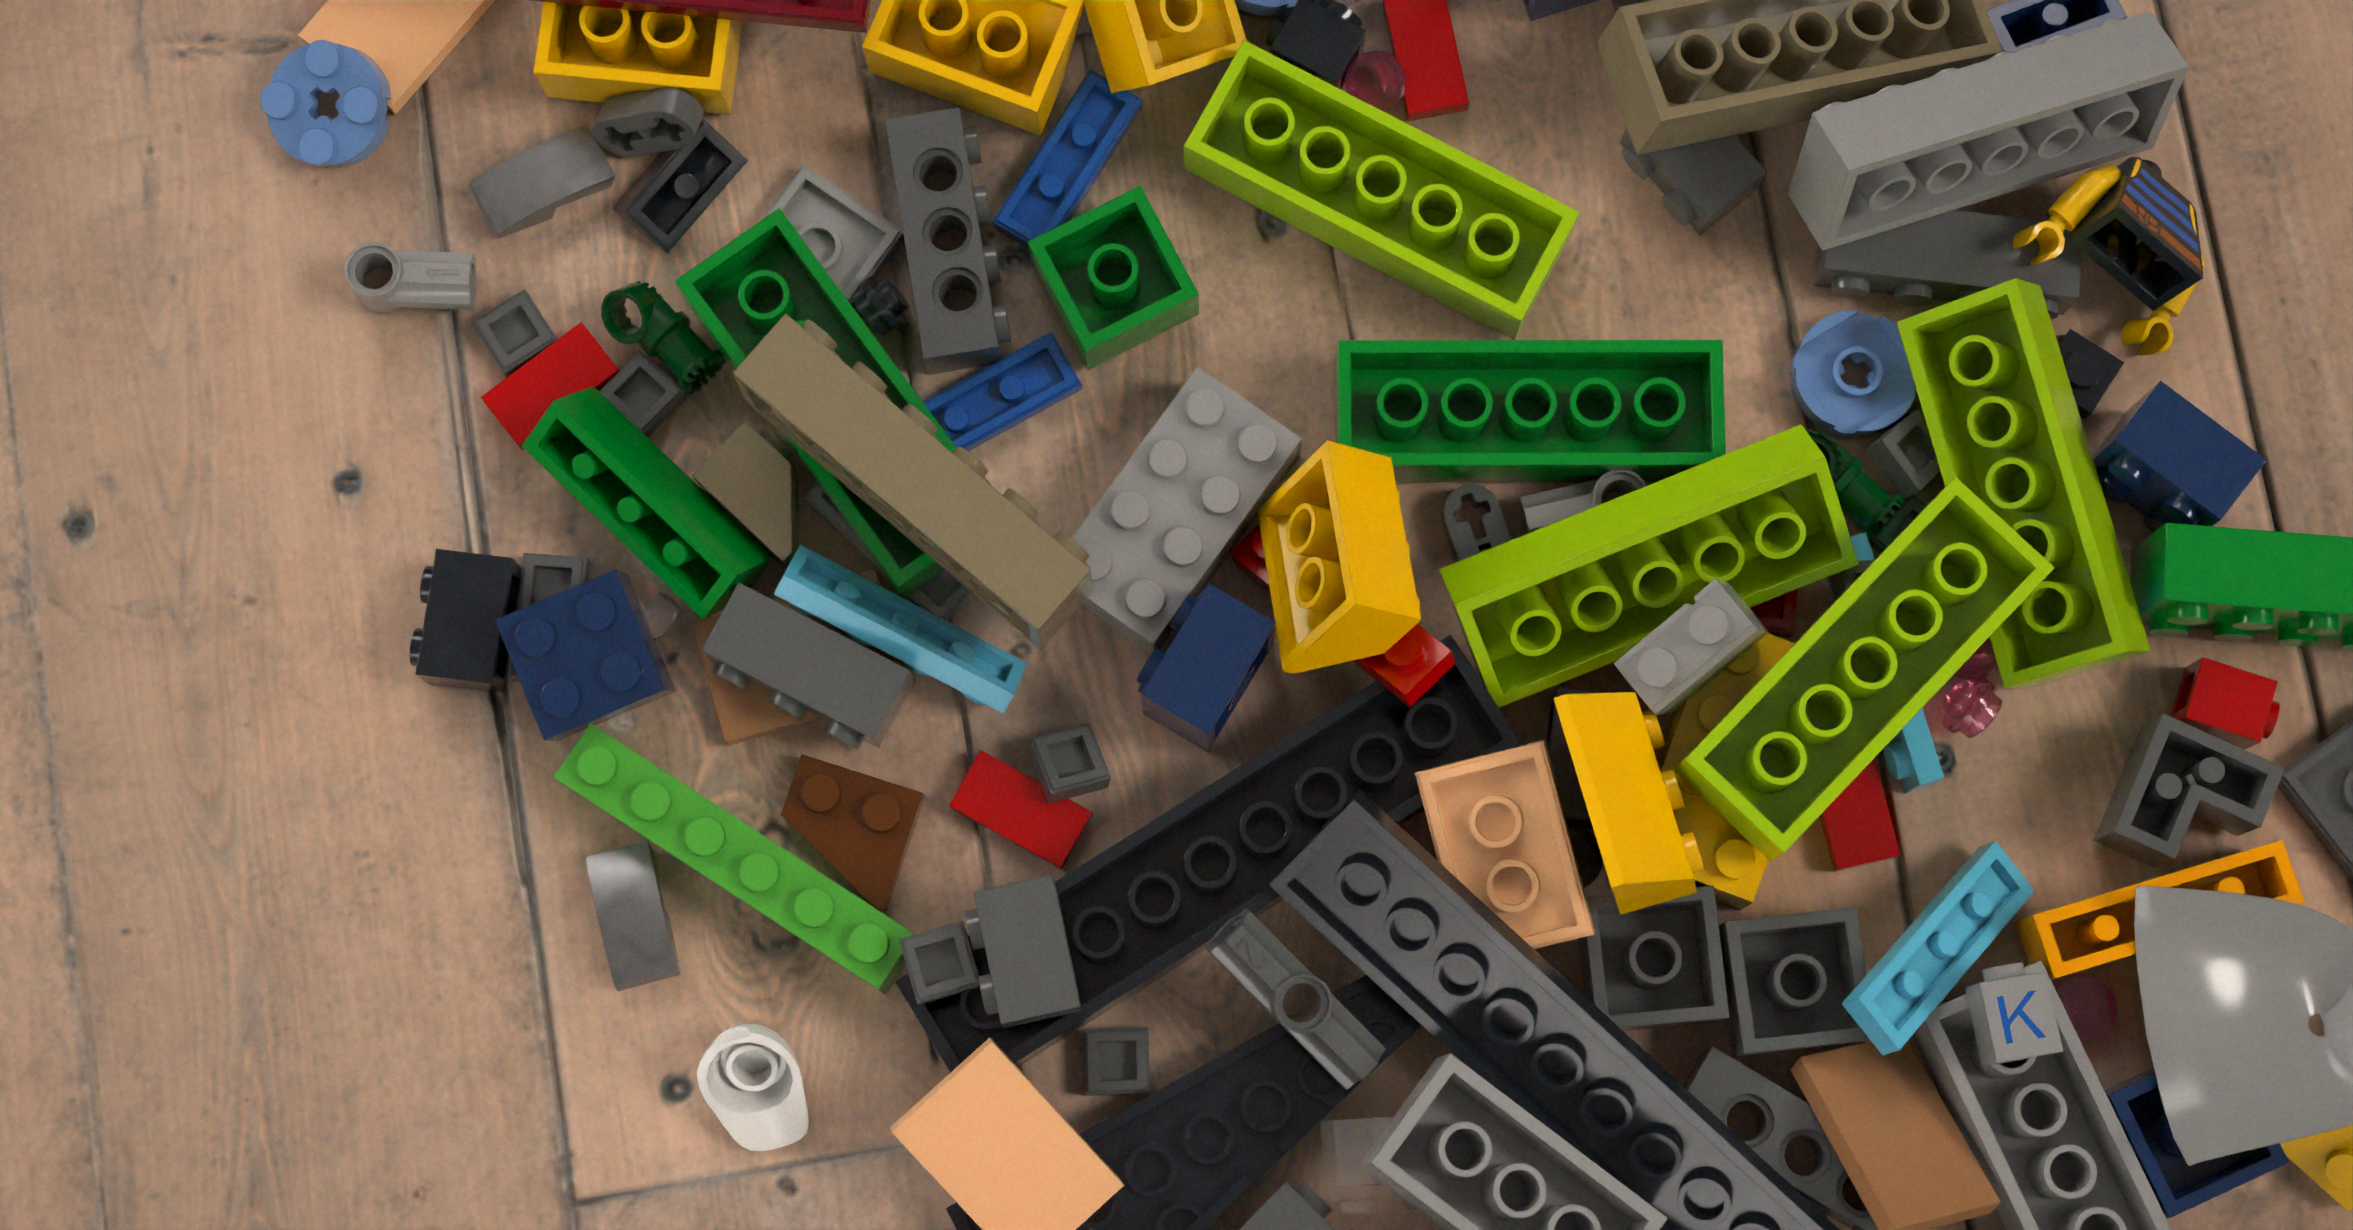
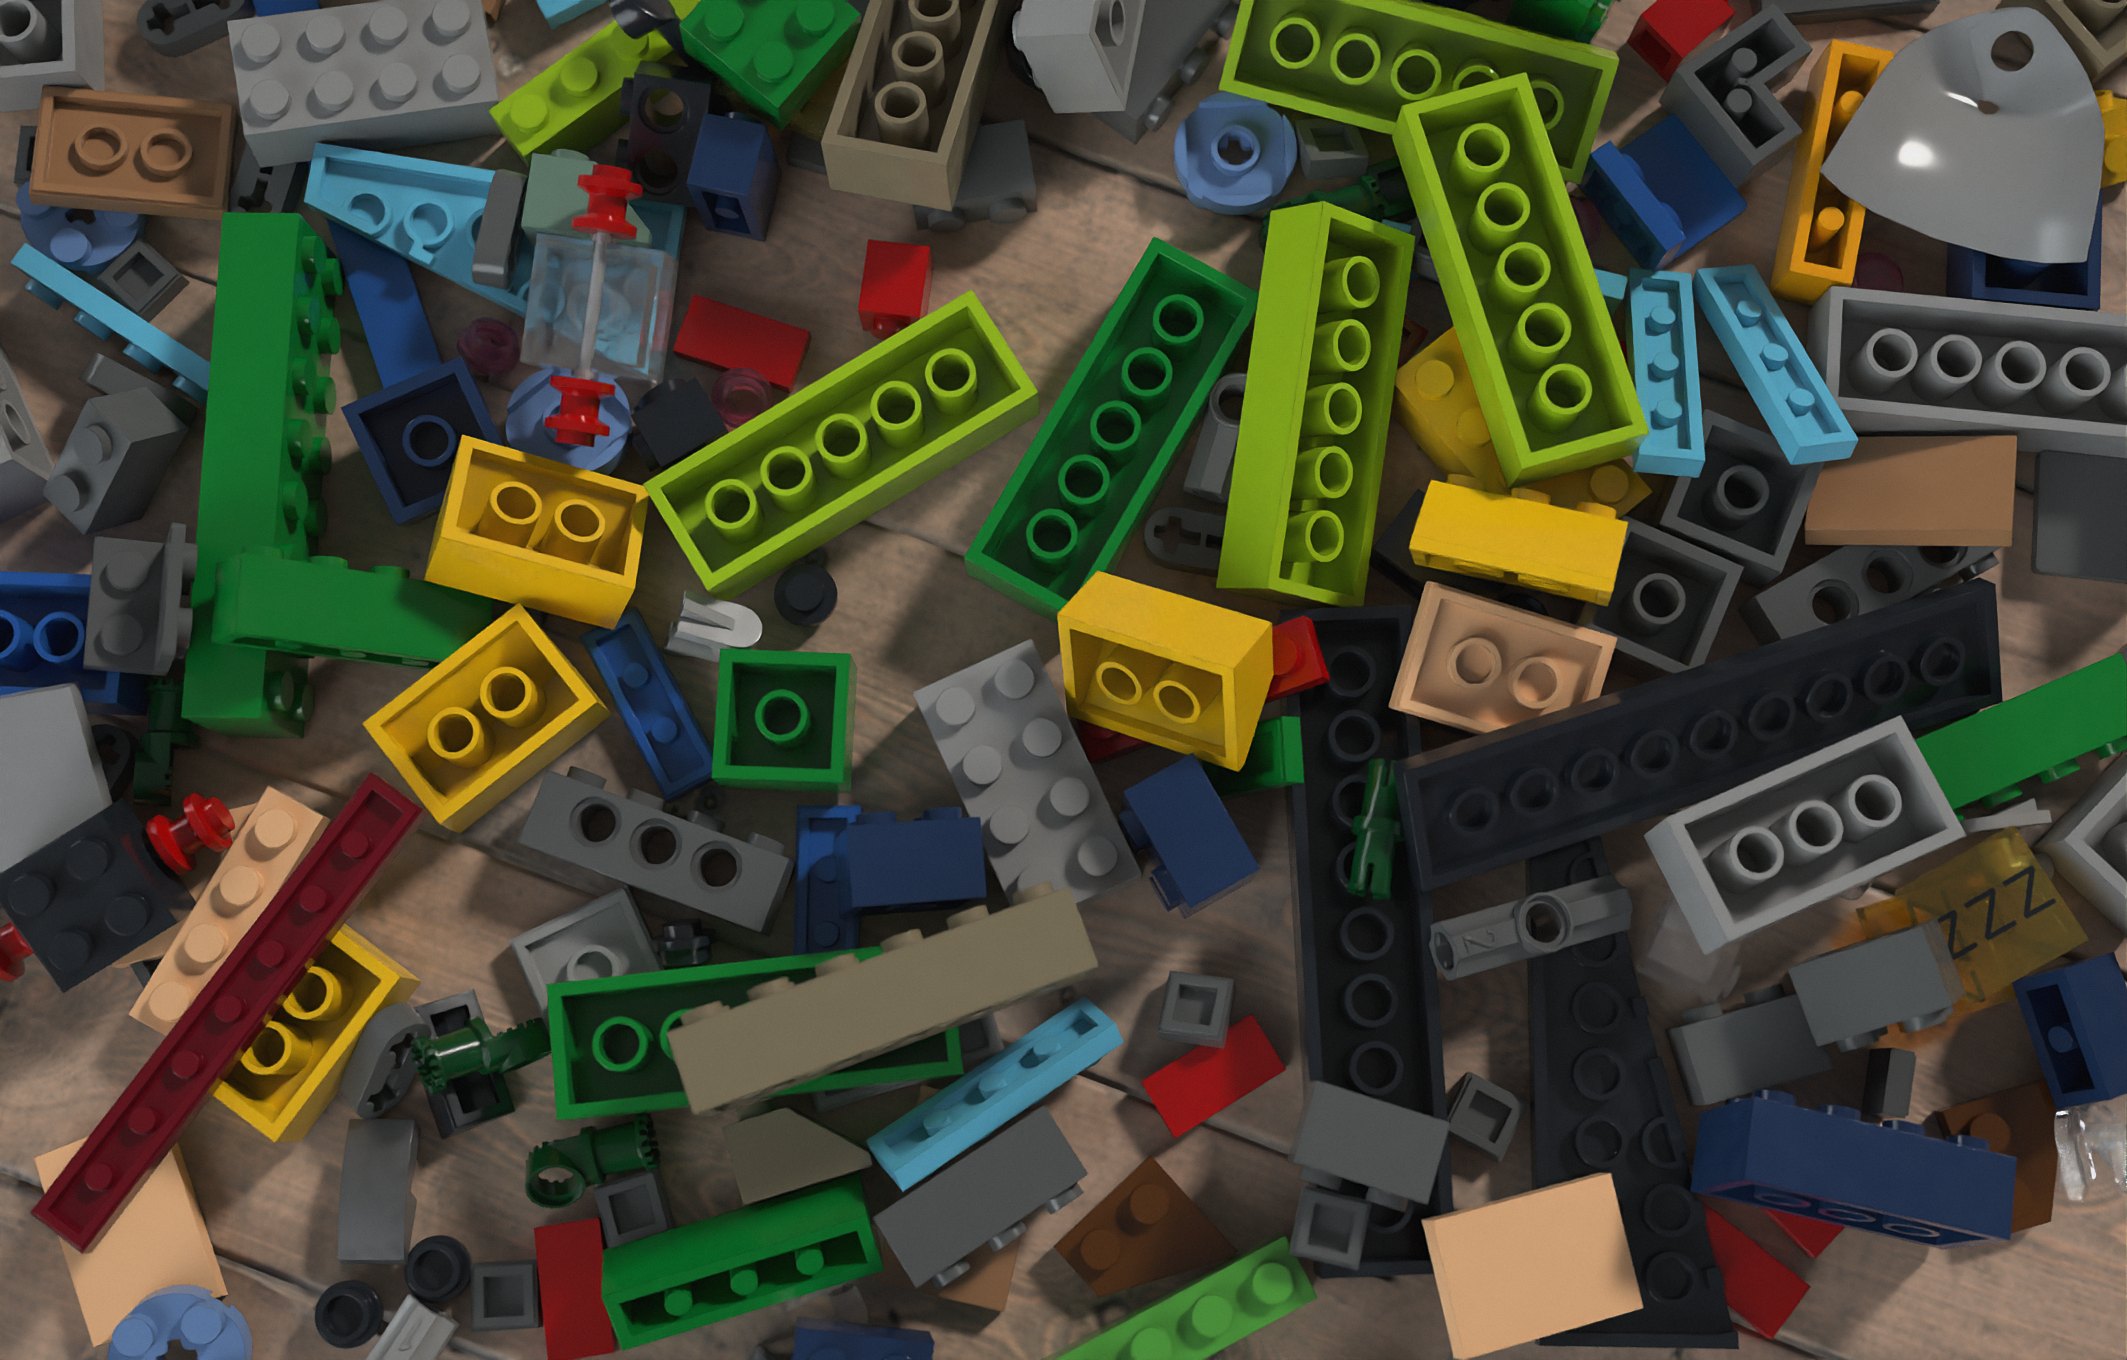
camera: 60 degrees left, 0 degrees up
(432, 217) = (349, 1314): none -> black plate
(506, 266) = (438, 1269): none -> black plate
(696, 186) = (476, 1050): none -> dark green connector
(1048, 445) = (909, 864): none -> dark blue brick
(1161, 171) = (711, 625): none -> light grey piece
(1235, 234) = (806, 595): none -> black plate
(1293, 820) = (1377, 833): none -> dark green pin
(1310, 695) = (1270, 764): none -> green tile
(1550, 151) = (894, 287): none -> red brick
(1691, 648) = (1416, 412): light grey brick -> none
(1871, 854) = (1665, 371): none -> medium azure plate
(2013, 1015) = (1876, 332): light grey brick -> none
(2051, 772) = (1660, 193): none -> blue bracket

